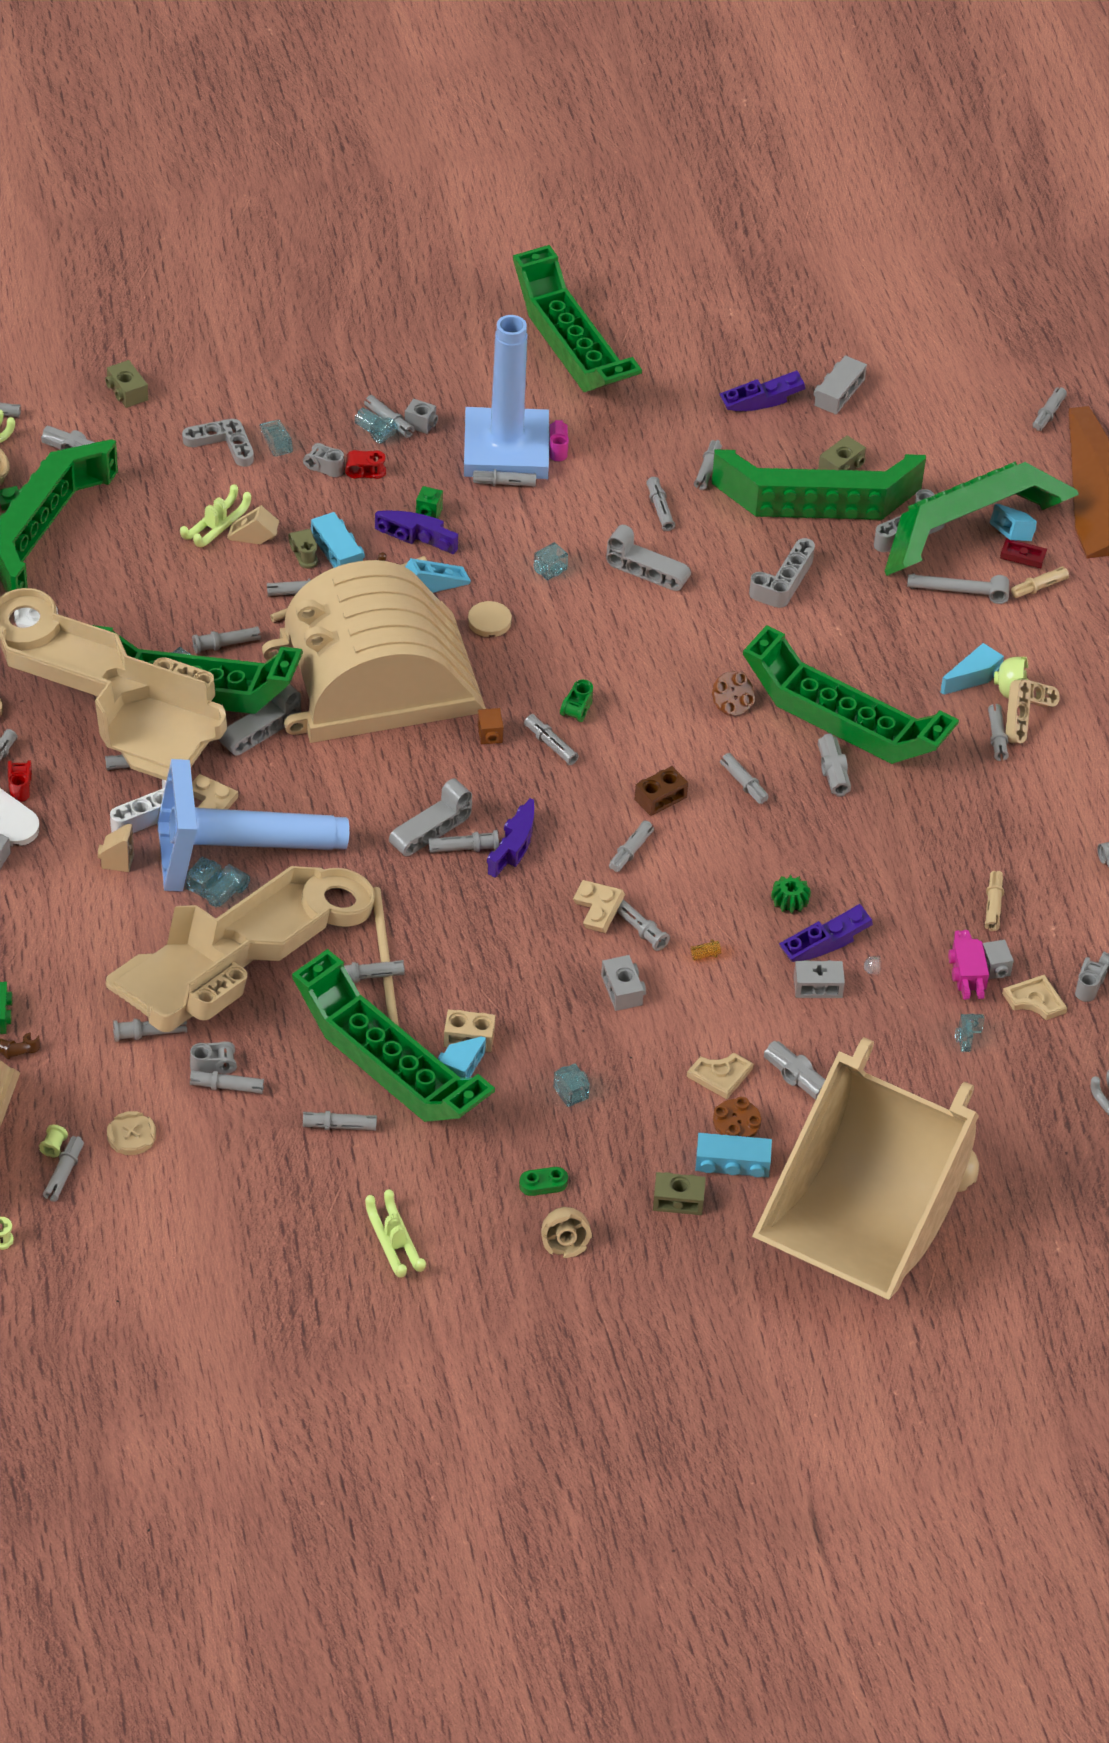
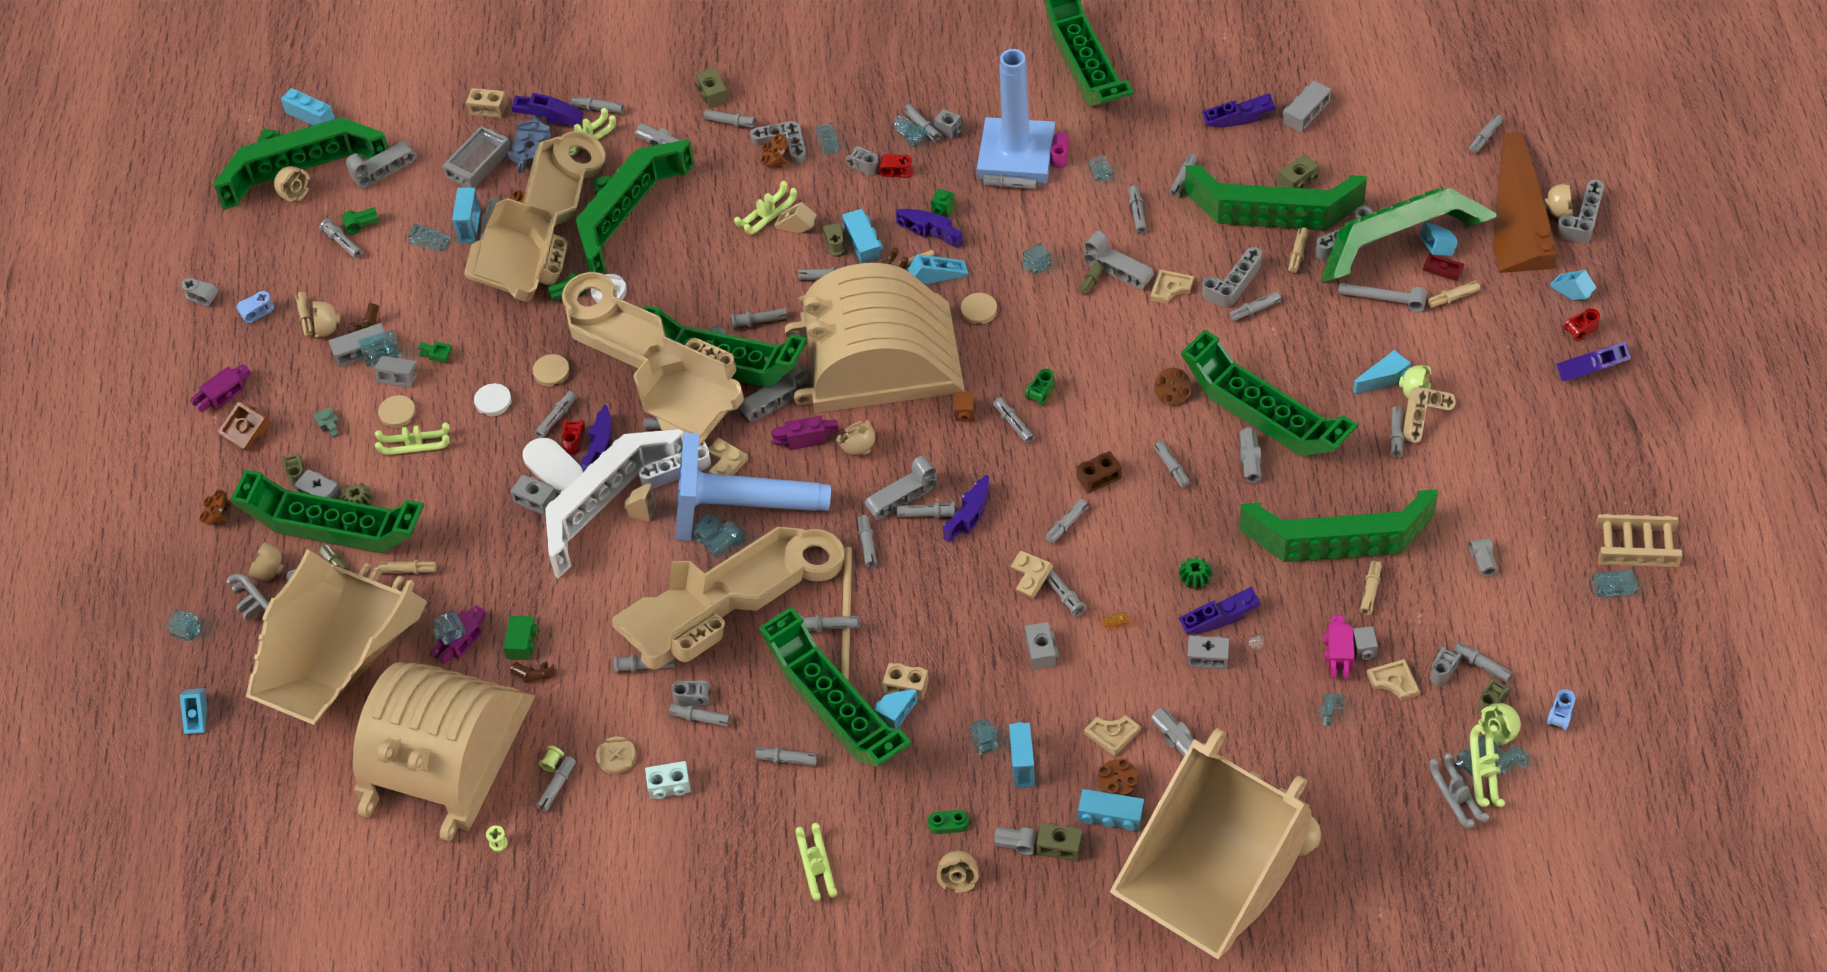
camera: 15 degrees right, 5 degrees up
(54, 785) = (601, 437): none -> dark purple slope
(68, 829) = (600, 485): none -> white slope
(155, 418) = (735, 119): none -> light grey pin
(200, 1155) = (667, 775): none -> light aqua brick
(215, 452) = (774, 151): none -> dark orange plate
(304, 763) = (804, 432): none -> magenta hinge
(370, 766) = (857, 439): none -> tan cylinder
(395, 873) = (865, 534): none -> light grey axle
(609, 460) = (1100, 168): none -> clear light blue bracket
(617, 580) = (1091, 278): none -> olive axle
(622, 1100) = (1022, 755): none -> medium azure window
(635, 1195) = (1021, 840): none -> light grey piece
(712, 584) = (1169, 285): none -> tan tile
(806, 607) = (1255, 306): none -> light grey axle
(854, 545) = (1297, 254): none -> tan axle
(945, 844) = (1338, 535): none -> green slope

